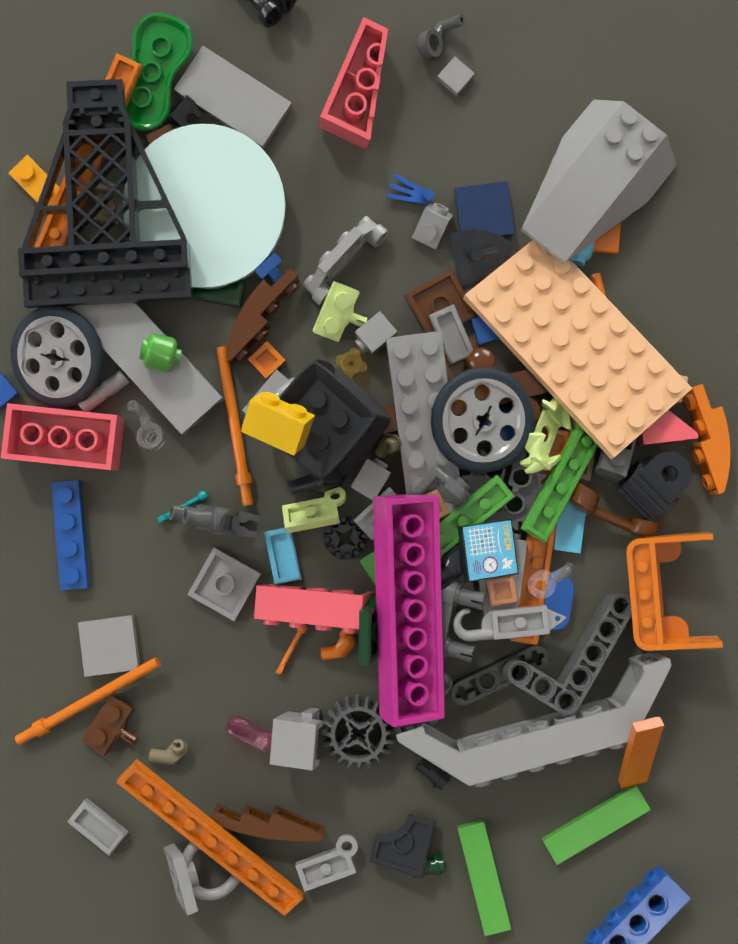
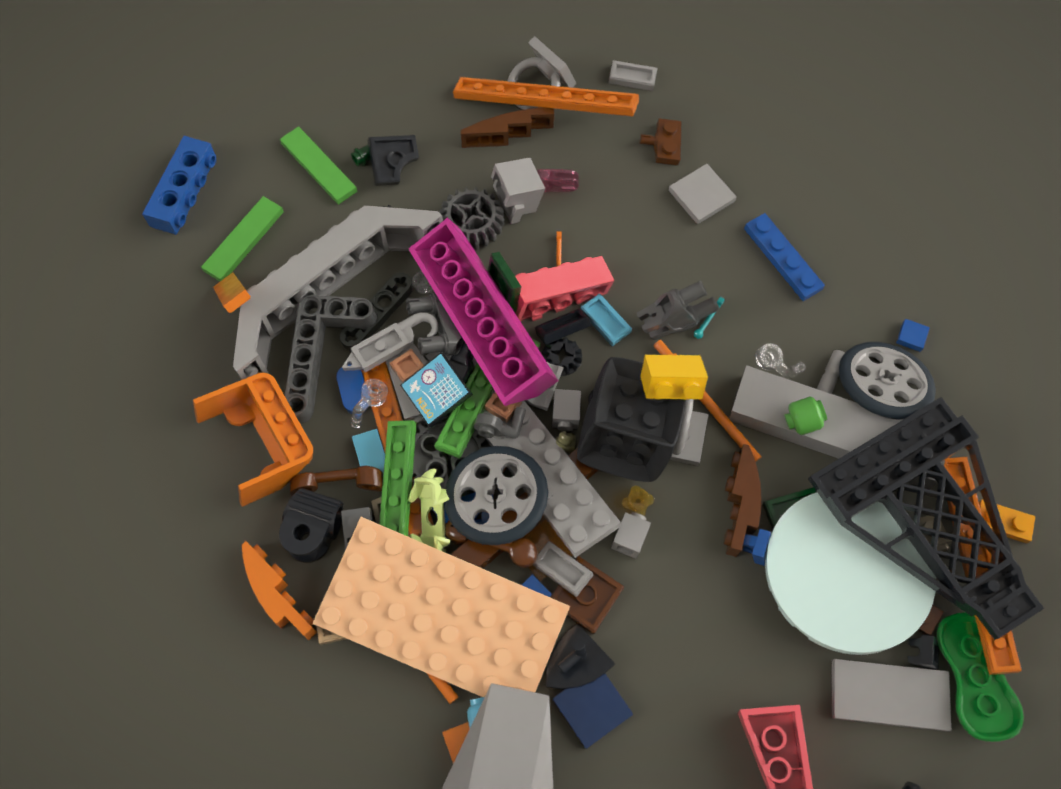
camera: 150 degrees right, 20 degrees down
(44, 725) = (714, 120): orange bar -> none
(62, 437) = (838, 319): coral brick -> none
(170, 755) = (609, 140): dark tan arm -> none
(224, 583) = (639, 276): light grey tile -> none
(267, 360) = (712, 468): orange tile -> none
(313, 512) = (592, 362): yellowish green hinge -> none
(328, 865) = (445, 121): light grey hinge -> none
(329, 566) = (562, 326): none -> black tile
(332, 261) = (701, 601): light grey plate -> none
(338, 312) = (675, 537): yellowish green plate -> none
(341, 648) = (523, 266): orange arm -> none
(418, 194) = (663, 690): blue piece -> none
(432, 225) = (634, 667): light grey bracket -> none
(666, 429) = (317, 578): coral slope -> none

